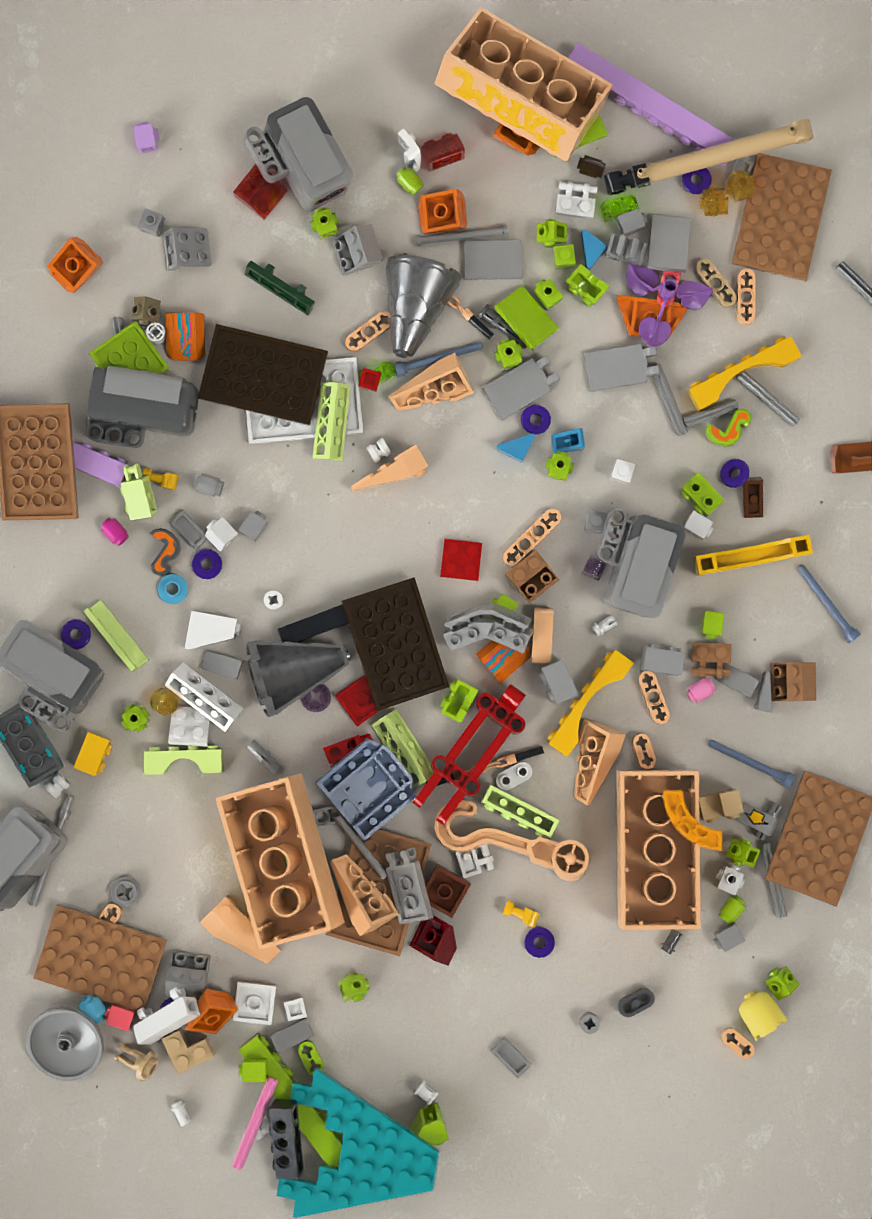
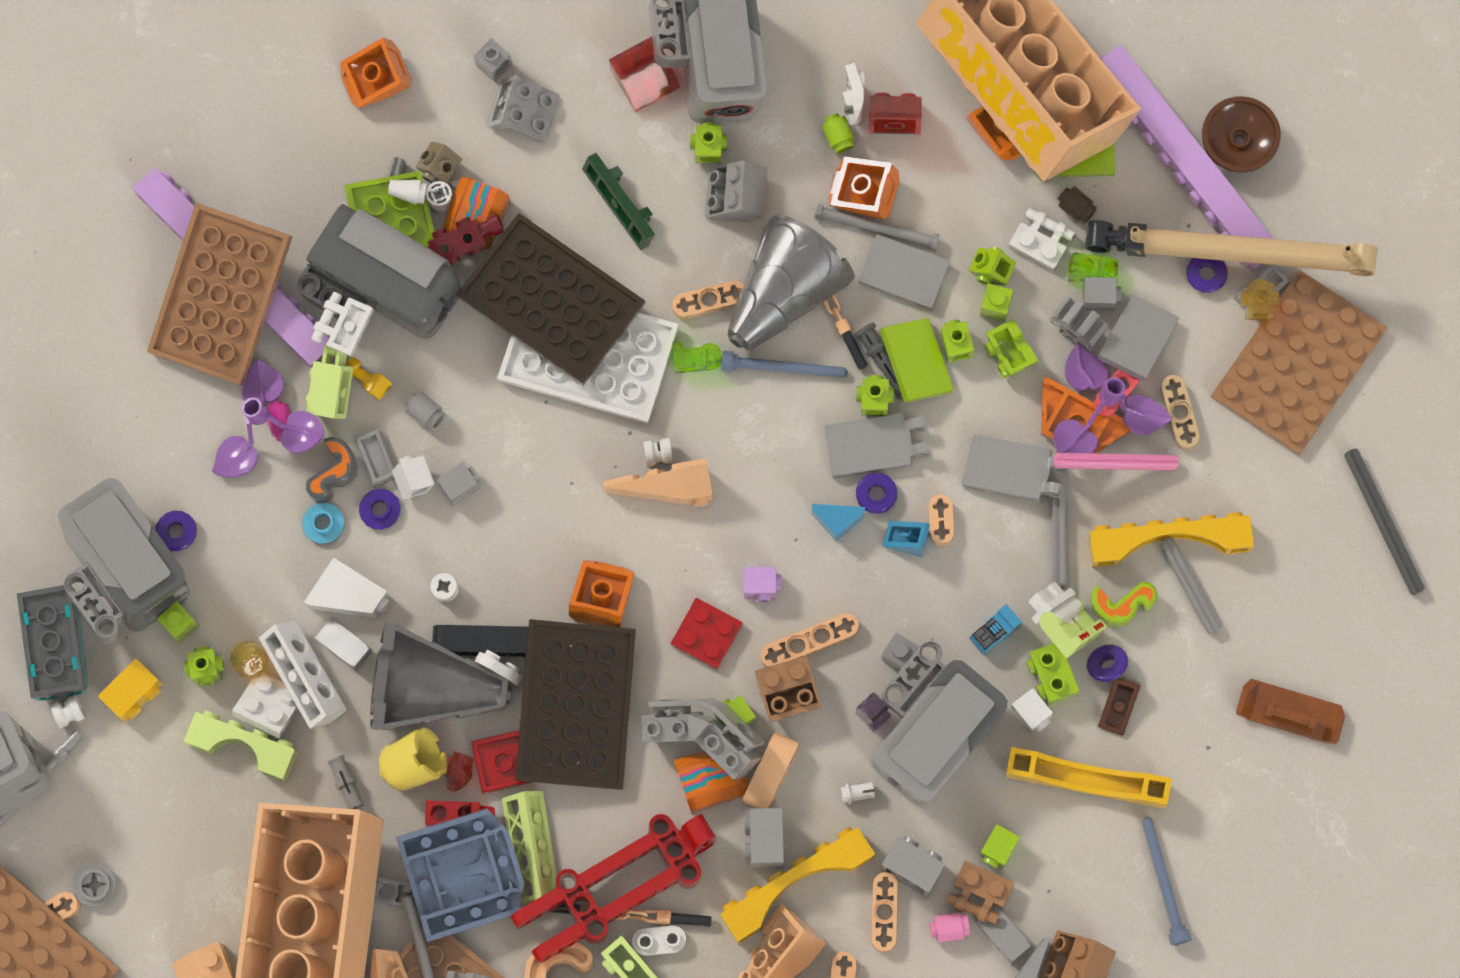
camera: 30 degrees right, 10 degrees down
(105, 695) = (178, 622): none -> lime brick
(116, 636) = (225, 553): yellowish green fence -> none
(133, 537) = (300, 434): none -> medium lavender plant
(135, 338) = (408, 190): none -> white cone
(135, 453) = (349, 327): none -> white plate
(179, 357) = (455, 237): none -> dark red brick
(303, 725) = (412, 760): none -> light yellow cylinder
(315, 706) = (457, 738): clear purple gear -> none
(334, 421) = (616, 392): yellowish green fence -> none
(335, 718) = (458, 771): none -> clear red rock
(340, 639) = (491, 662): none -> white plate
(369, 379) = (683, 357): red tile -> none
(380, 562) = (601, 594): none -> orange slope
(439, 382) = (769, 397): light nougat wedge -> none
(459, 700) = (628, 812): lime cylinder -> none
(484, 512) = (761, 583): none -> lavender brick
(559, 473) = (882, 572): lime brick -> none
(590, 419) = (947, 519): none -> light nougat beam
(592, 248) = (1037, 307): dark azure slope -> none
(622, 471) = (961, 602): white brick -> none
(652, 480) = (996, 630): none -> leg
(687, 335) = (1115, 461): none -> bright pink axle
(688, 62) = (1244, 119): none -> reddish brown dish
(696, 456) = (1064, 619): none -> hips
(710, 413) = (1107, 574): light grey axle -> none
(714, 201) = (1217, 308): clear yellow brick -> none
(750, 310) = (1226, 429): light nougat beam -> none

